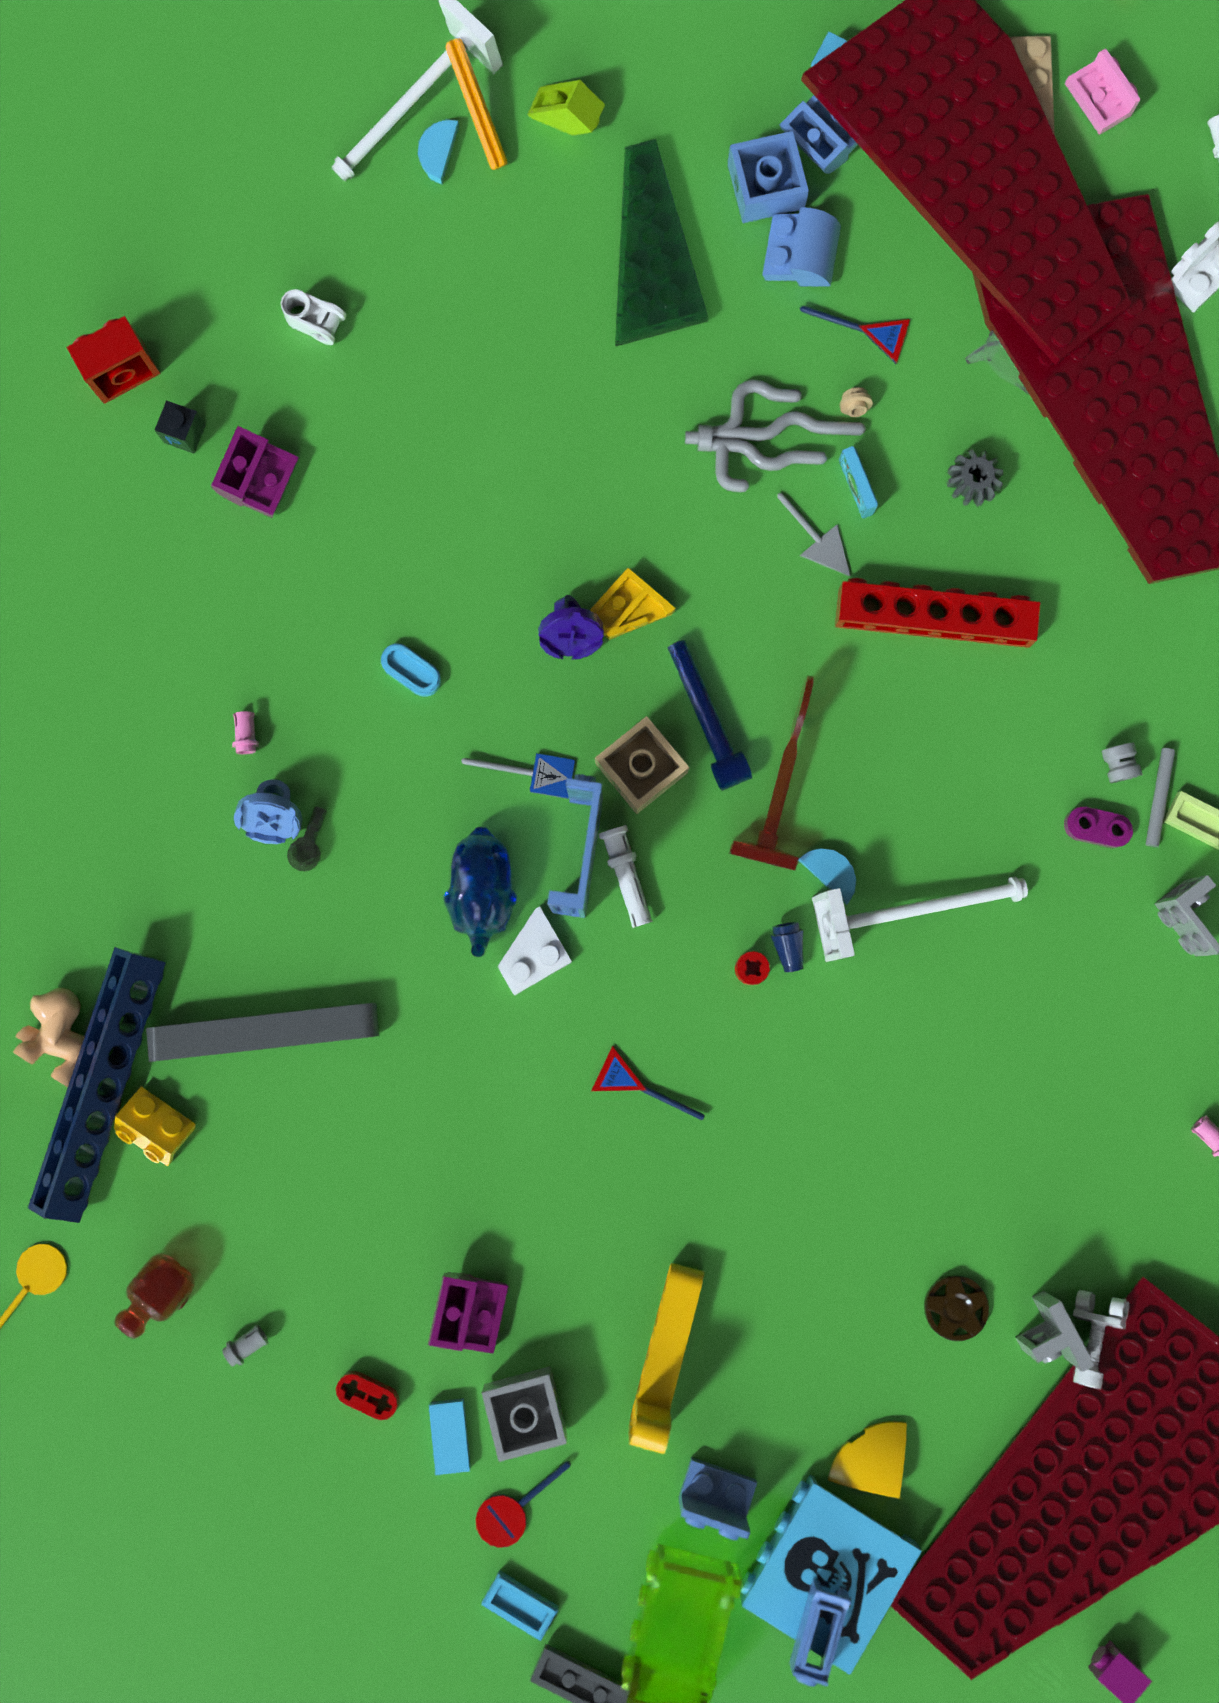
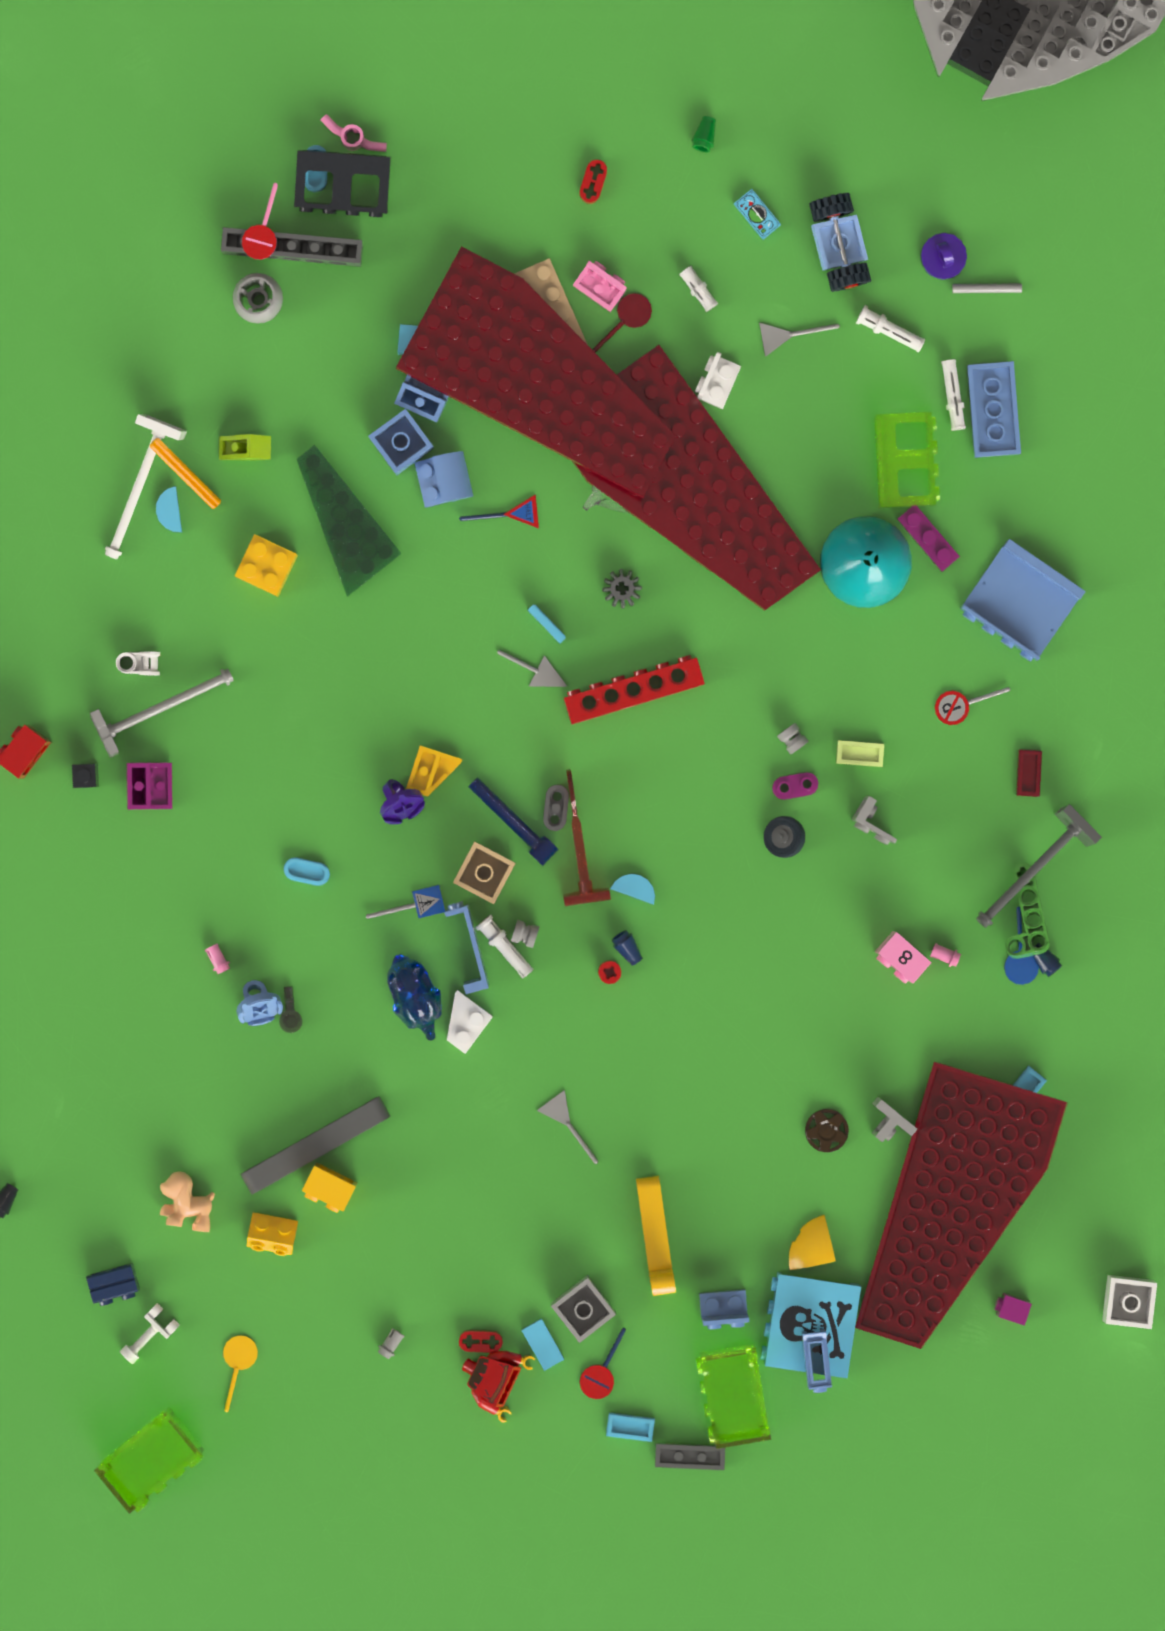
camera: 20 degrees left, 5 degrees up
(72, 1130) = (226, 1222): dark blue brick -> none
(154, 1294) = (321, 1334): clear red piece -> none
(231, 380) = (109, 731): none -> light grey tile
(253, 1096) = (329, 1188): none -> yellow brick
(362, 1458) = (494, 1378): none -> red torso
(467, 1313) = (522, 1263): magenta brick -> none
(528, 260) = (266, 565): none -> yellow brick
(605, 1124) = (558, 1110): none -> light grey piece
(619, 1077) = (553, 1076): piece -> none
(661, 869) = (525, 933): none -> light grey wheel
(732, 438) = (449, 627): light grey plant -> none
(770, 723) = (556, 807): none -> dark grey plate
(836, 925) = (651, 923): white tile -> none
(855, 402) = (523, 569): tan plate -> none
(1059, 886) = (784, 836): none -> black wheel
(1117, 1317) = (905, 1094): white bar -> none
(1127, 147) = (633, 311): none -> dark red piece
(1159, 1116) = (902, 957): none -> bright pink brick
(1160, 797) = (827, 749): light grey bar -> none

